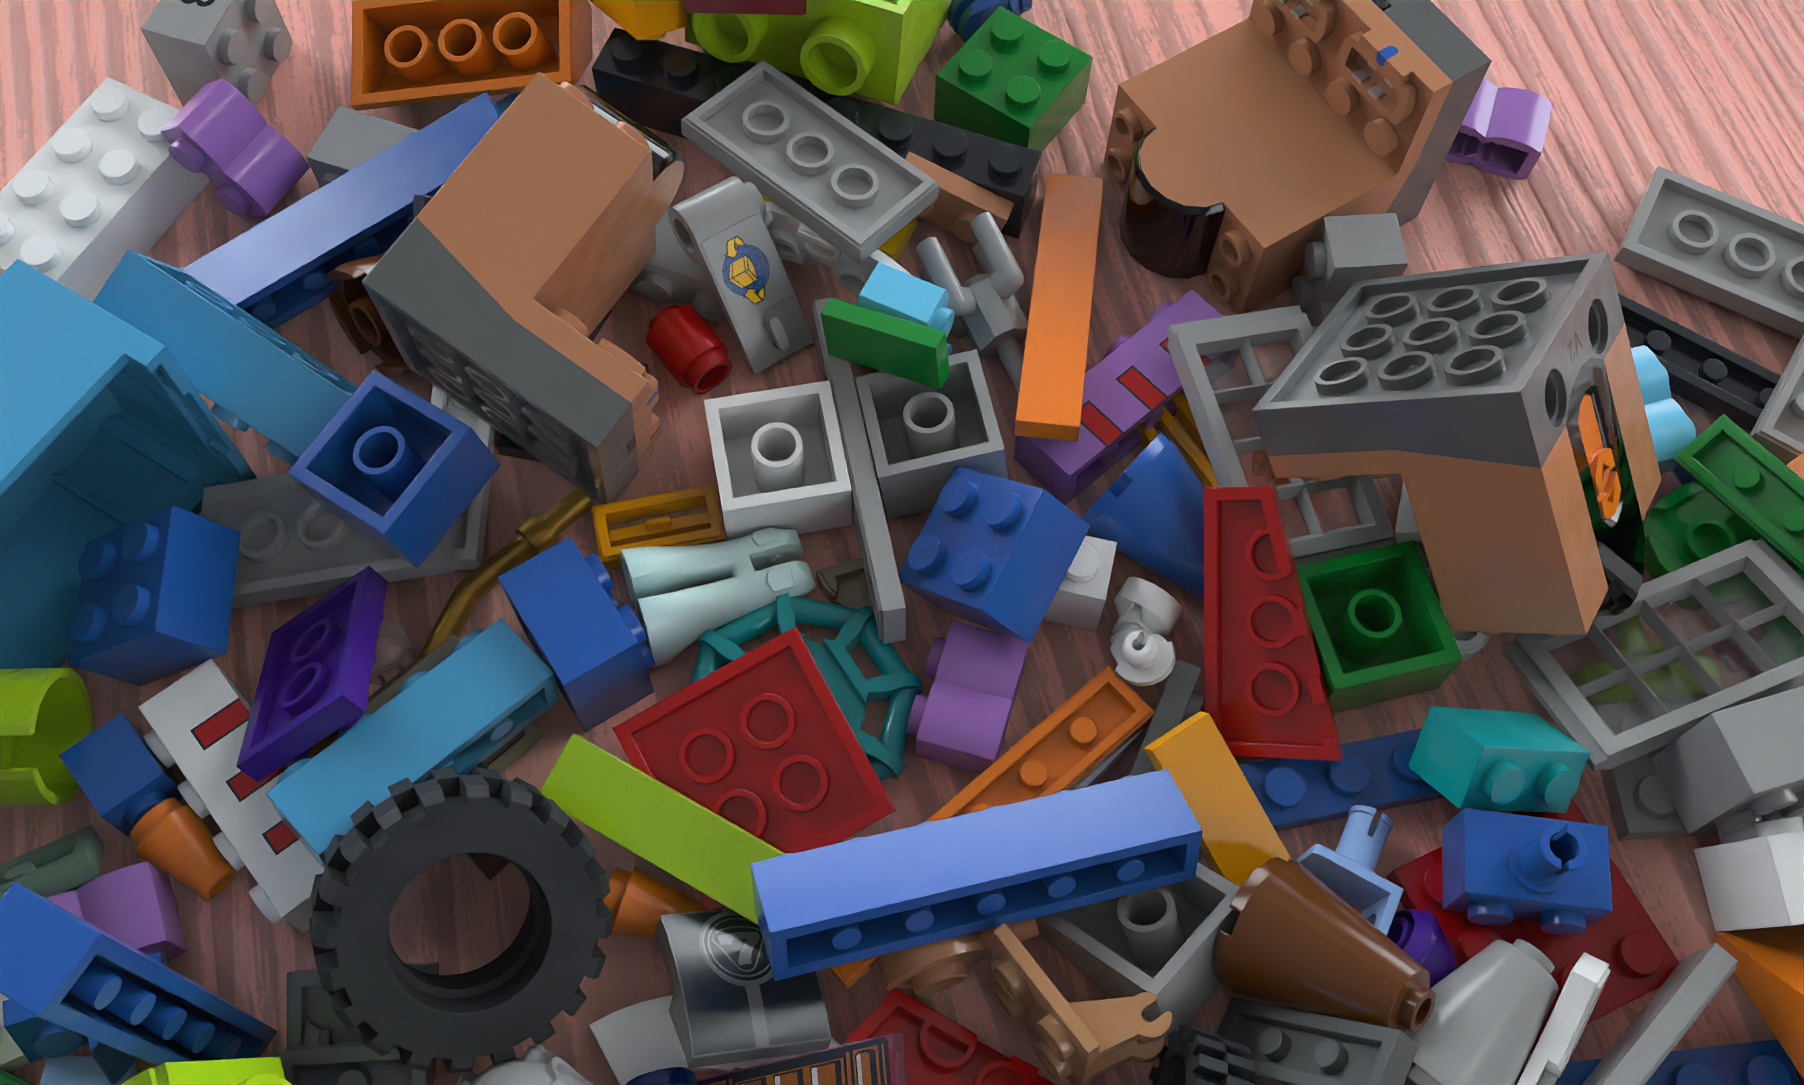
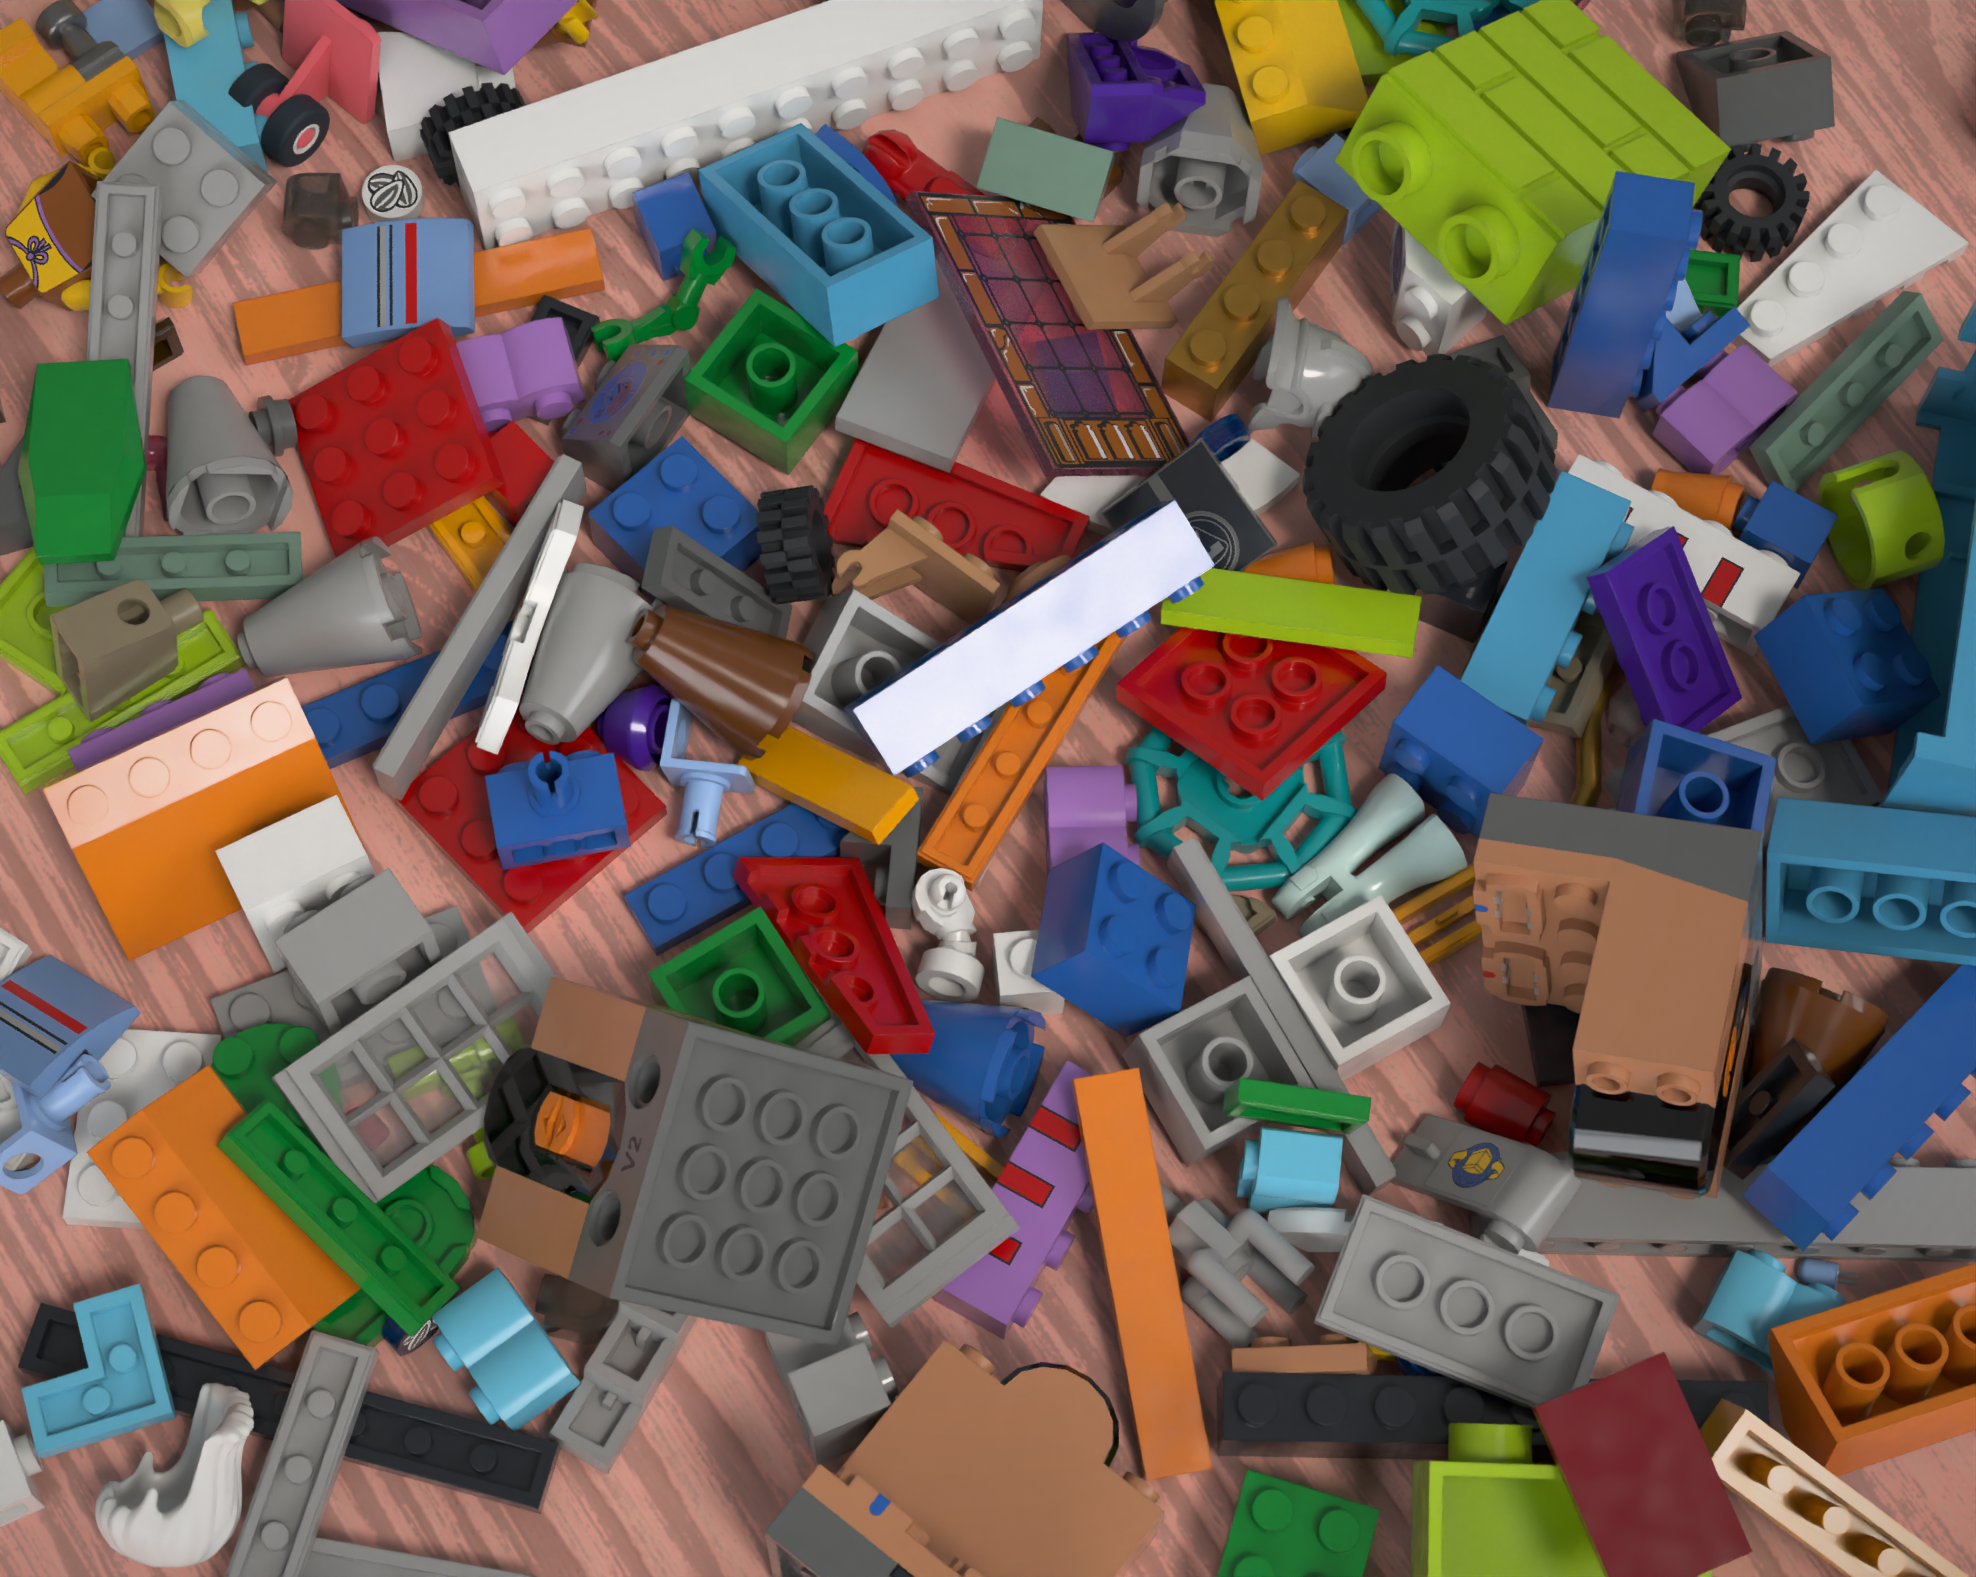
camera: 160 degrees right, 5 degrees up
(1498, 760) = (594, 900): teal brick -> none

